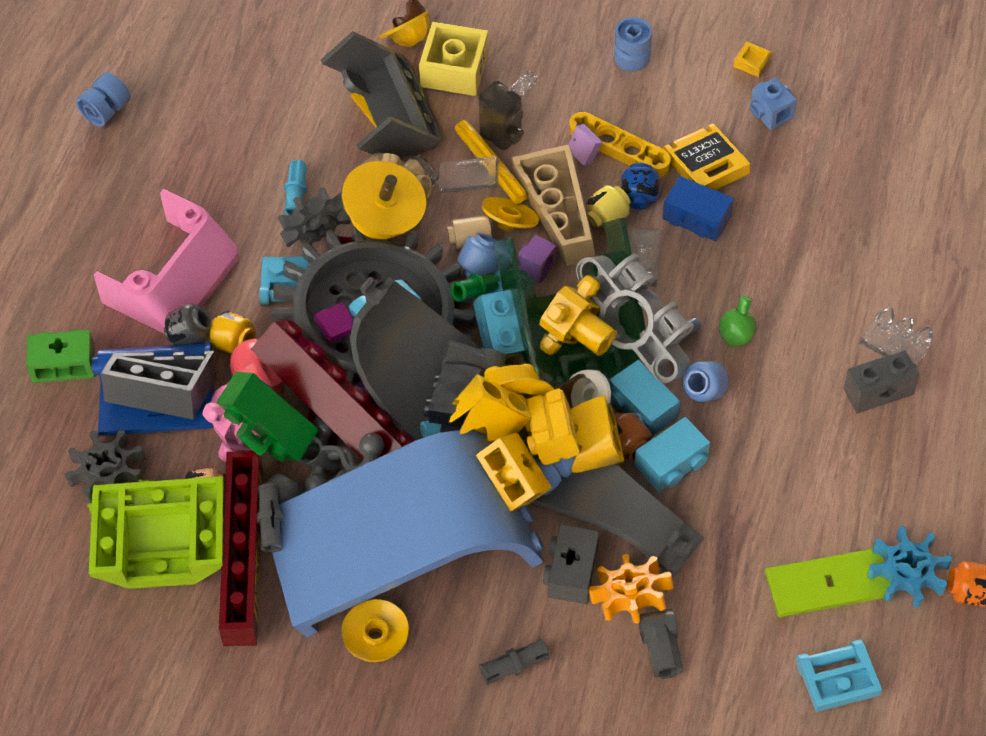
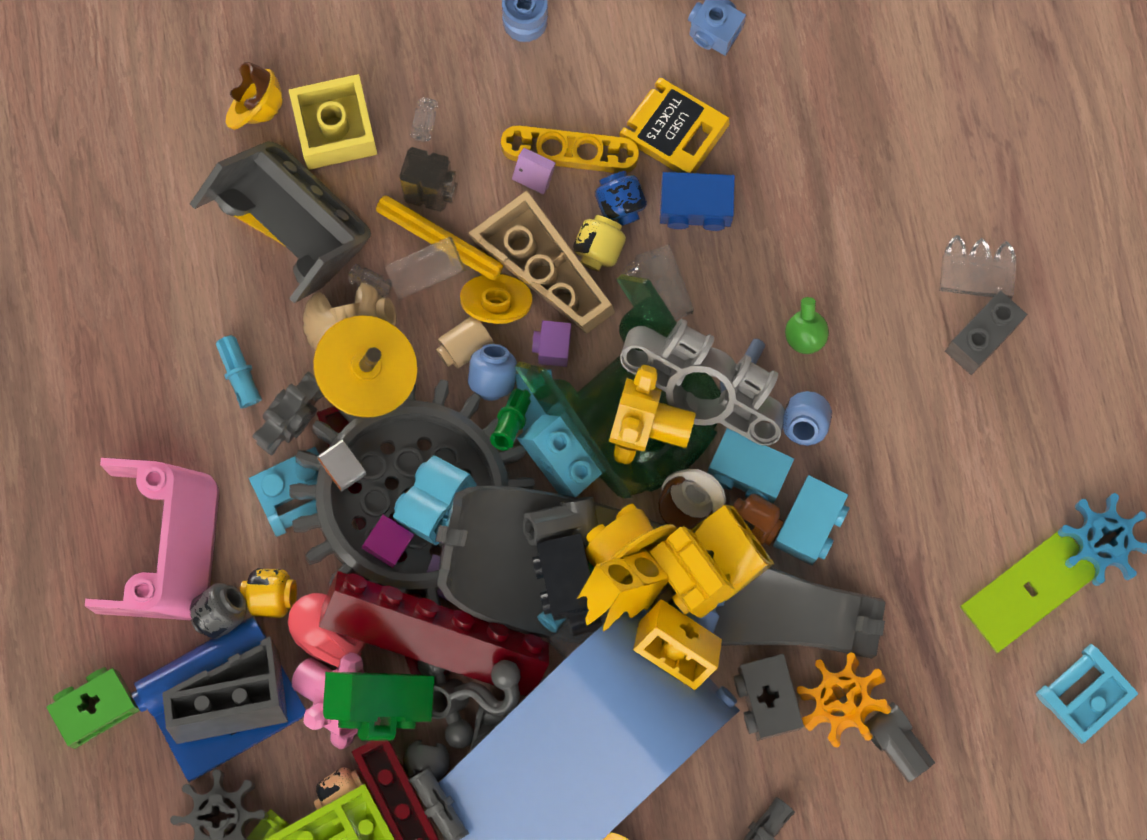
camera: 30 degrees left, 20 degrees up
(331, 260) = (341, 465): none -> flat silver piece

